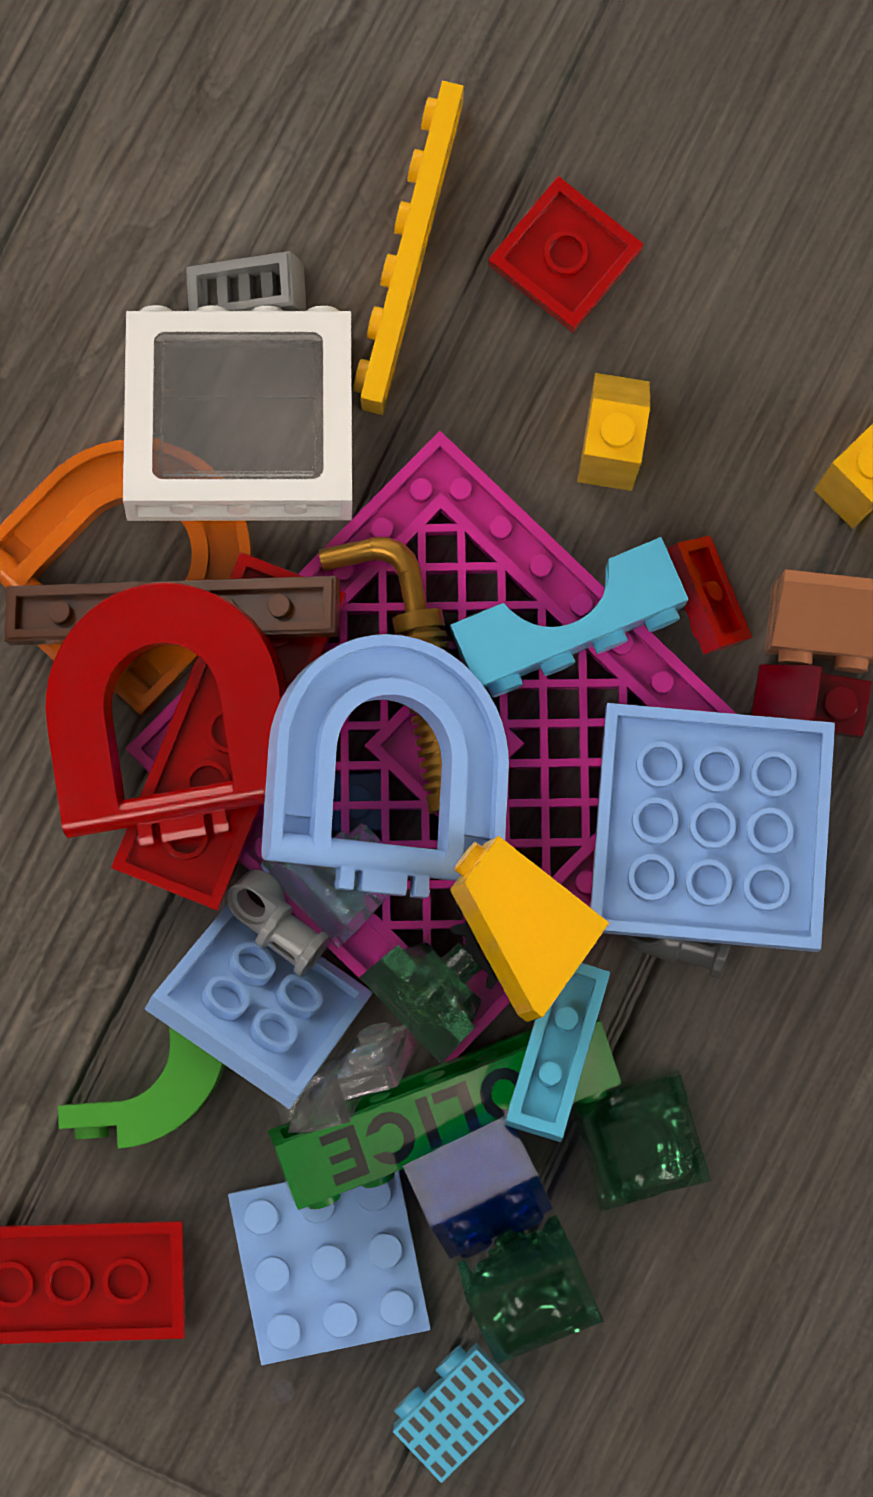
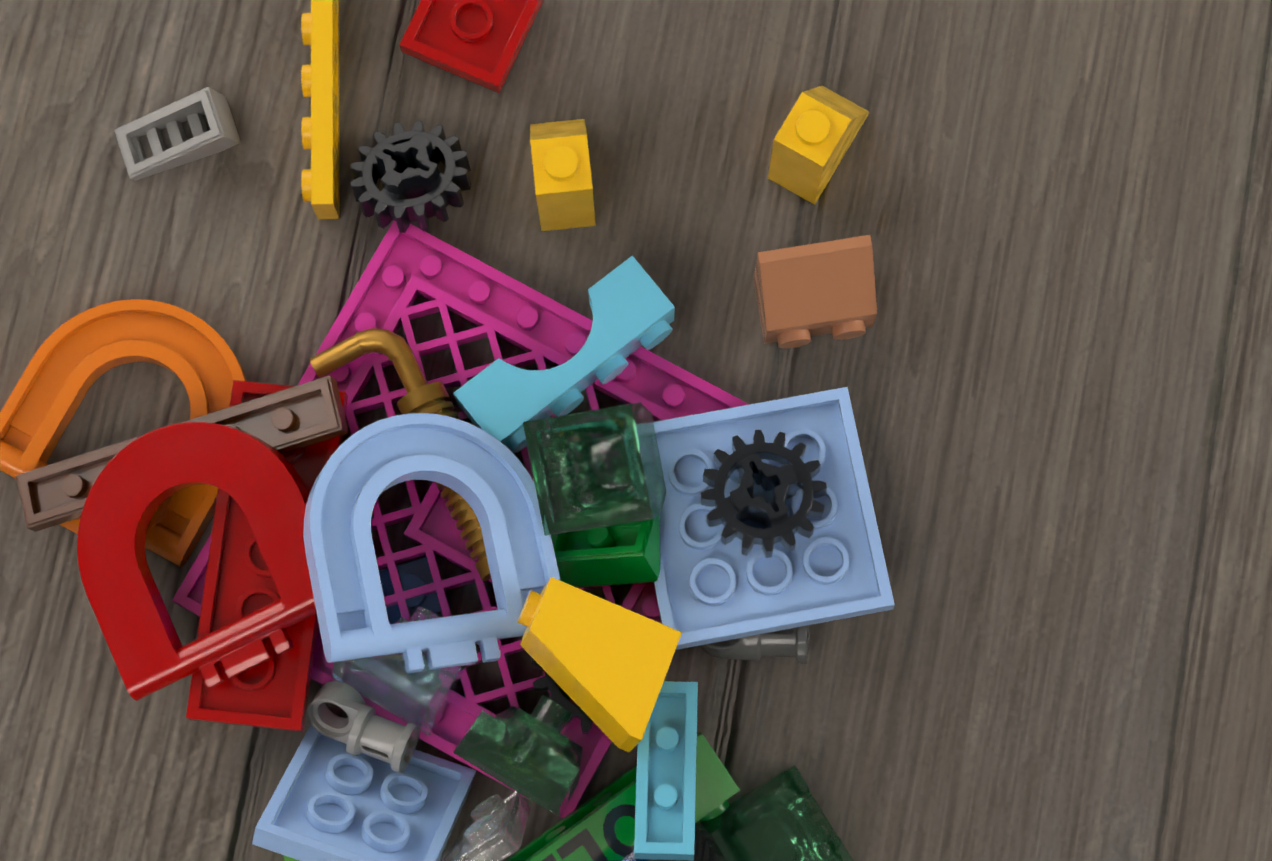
camera: 15 degrees left, 5 degrees down
(237, 414) = (197, 253): piece -> none
(464, 394) = (410, 176): none -> black gear
(558, 816) = (609, 554): none -> green slope
(569, 738) = (596, 468): none -> clear green brick
(711, 602) = (697, 304): red plate -> none
(748, 801) = (741, 504): none -> black gear
(810, 695) = (818, 368): dark red slope -> none

